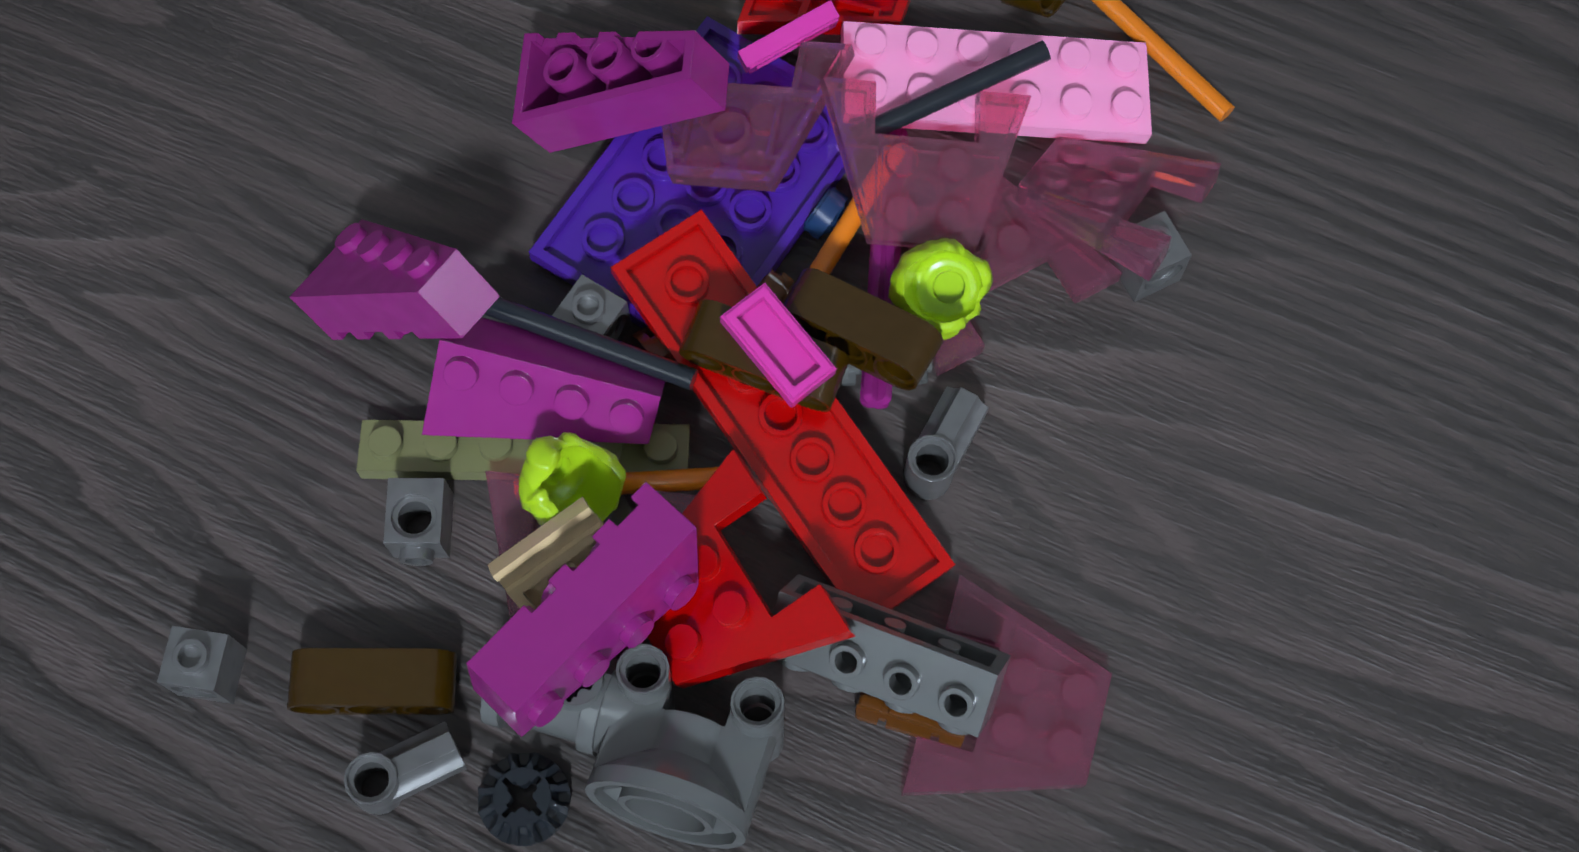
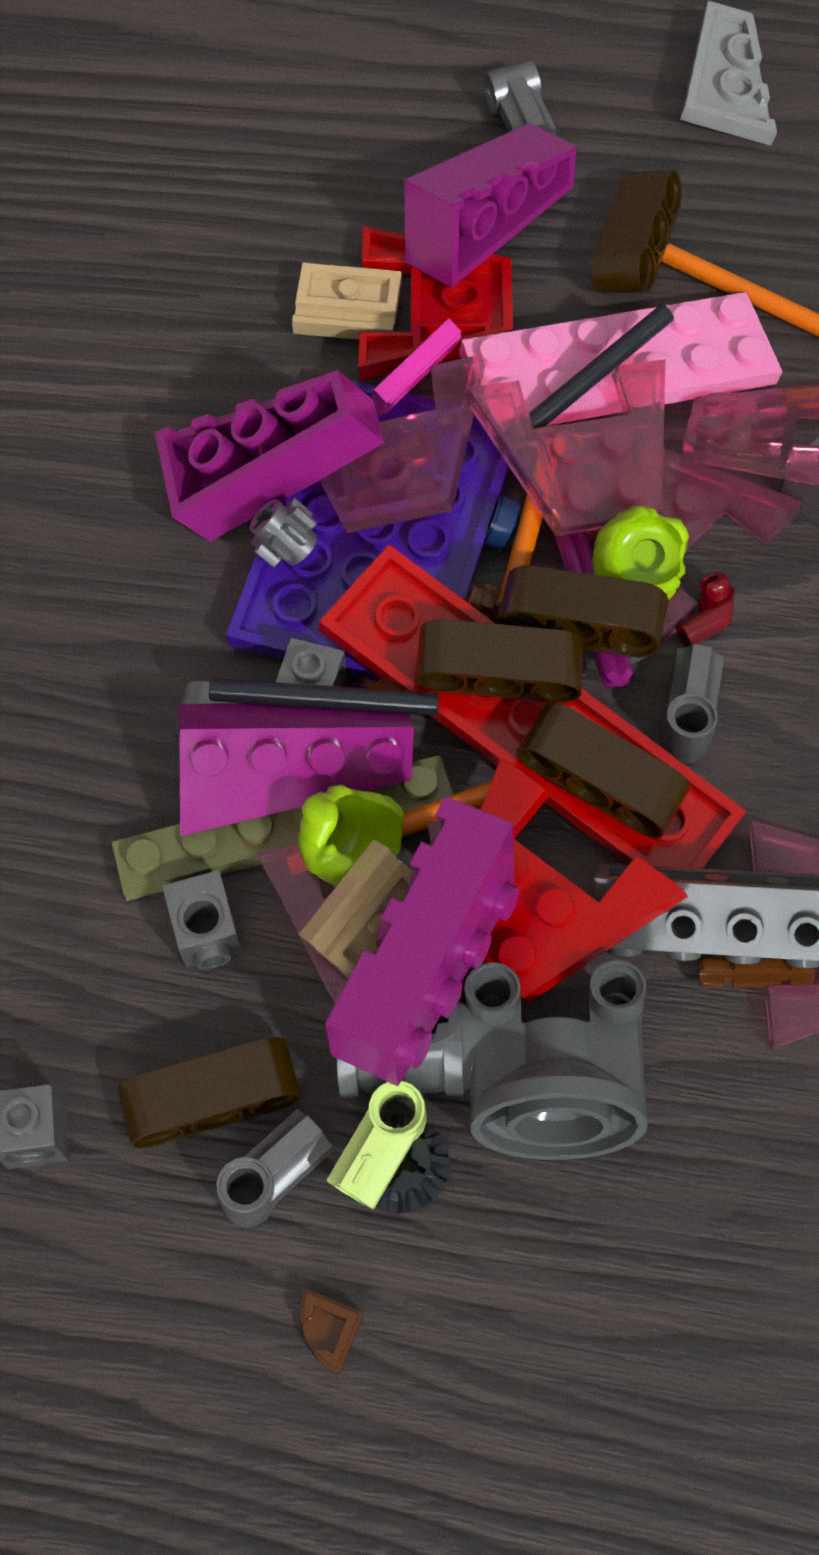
camera: 15 degrees left, 5 degrees down
(393, 286) = (112, 695): magenta wedge -> none
(499, 782) = (376, 1148): none -> yellowish green piece
(609, 168) = (283, 532): none -> flat silver gear
(778, 345) = (515, 643): dark pink tile -> none
(827, 488) = (603, 770): none -> dark brown beam
(998, 358) = (714, 610): none -> dark red arm

